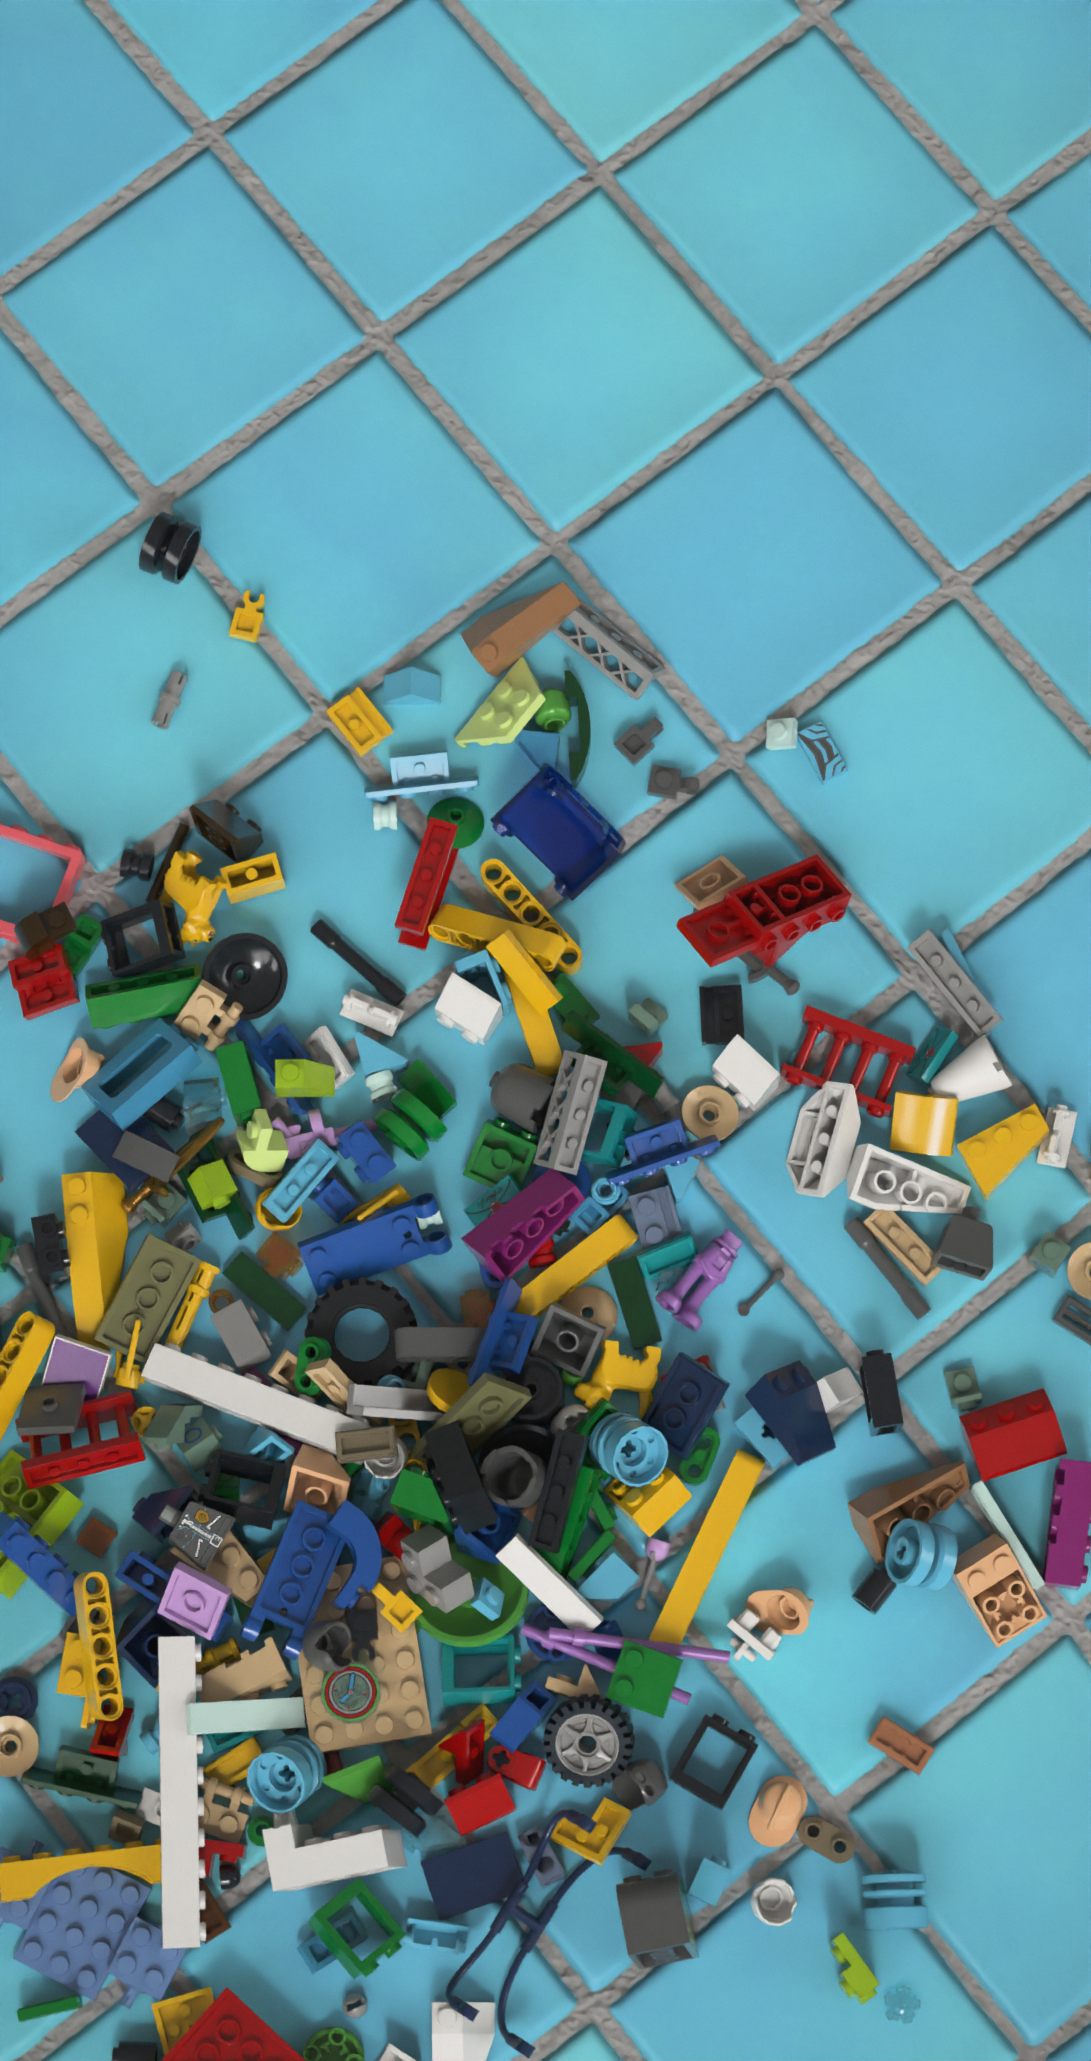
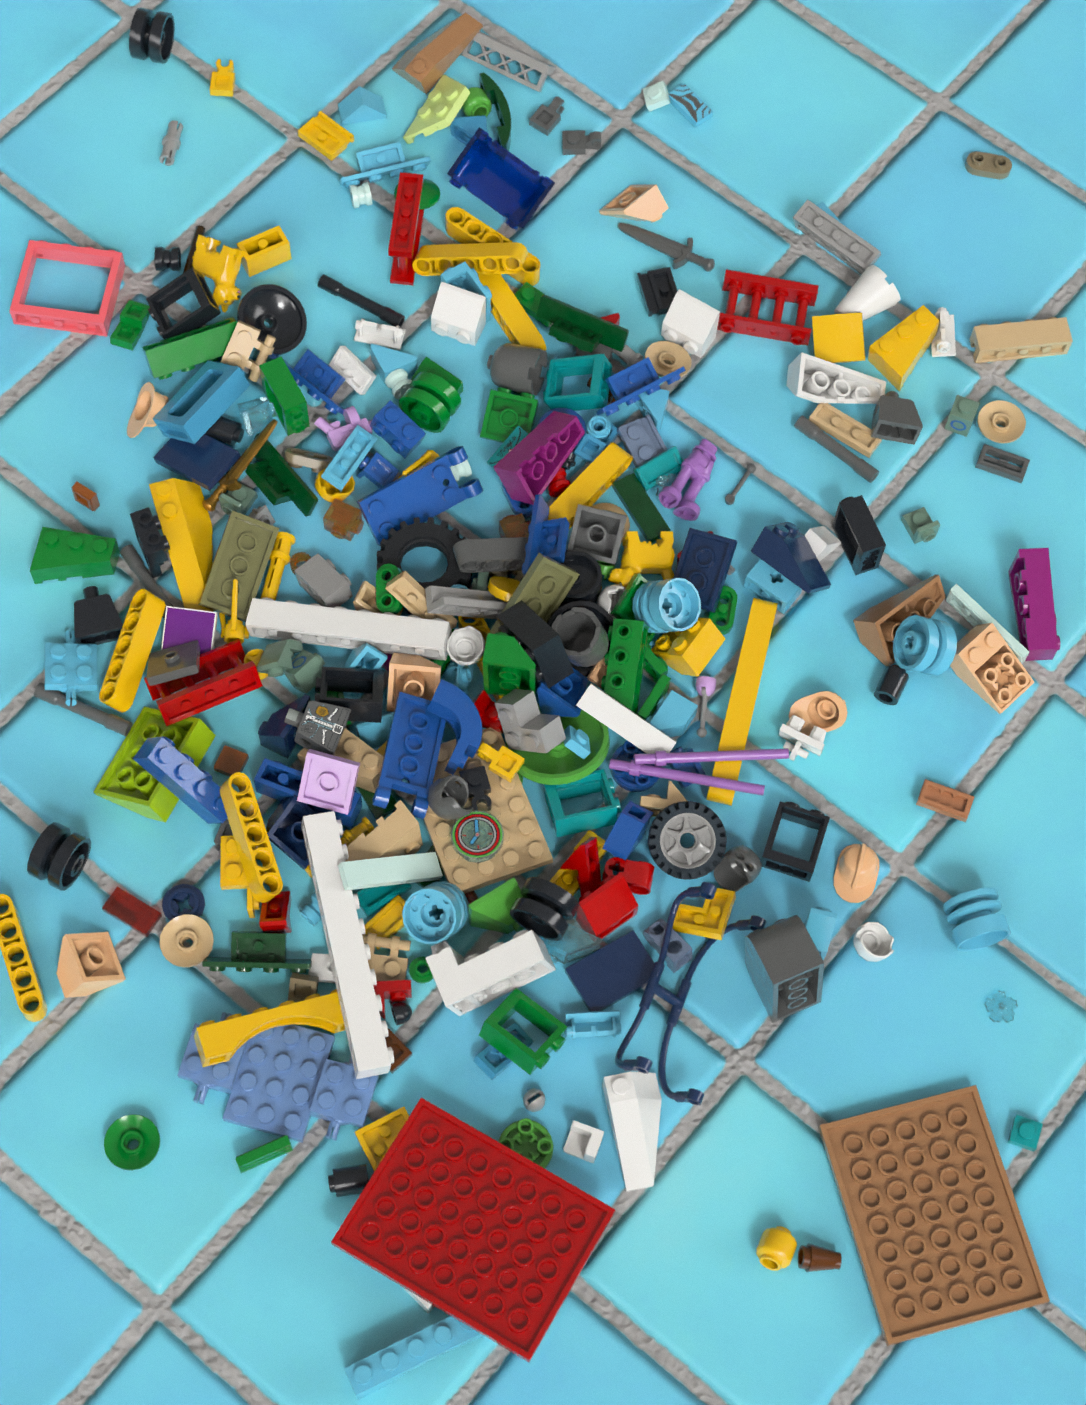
camera: 20 degrees left, 10 degrees down
(39, 930) = (96, 304): dark brown brick -> none
(44, 982) = (107, 352): red slope -> none
(145, 1156) = (217, 456): dark grey slope -> none
(212, 1185) = (277, 471): lime brick -> none
(226, 830) = (232, 219): dark brown slope -> none
(261, 1145) = (309, 436): yellowish green brick -> none
(264, 1291) = (336, 550): dark green tile -> none
(303, 1078) = (335, 380): lime slope -> none
(366, 1444) = (449, 634): dark tan tile -> none
(524, 971) = (498, 274): yellow tile -> none
(558, 1490) = (618, 640): black plate -> none
(574, 1112) = (563, 363): light grey fence -> none
(644, 1678) = (723, 778): green plate -> none
(647, 1016) = (600, 301): sand green bracket -> none
(767, 914) = (682, 206): red wedge -> none
(824, 1140) = (763, 360): white wedge -> none
(825, 1841) = (902, 888): dark tan plate -> none
(857, 1978) = (962, 982): lime plate -> none
(932, 1055) = (830, 292): teal tile -> none
(1012, 1434) = (971, 546): red slope -> none

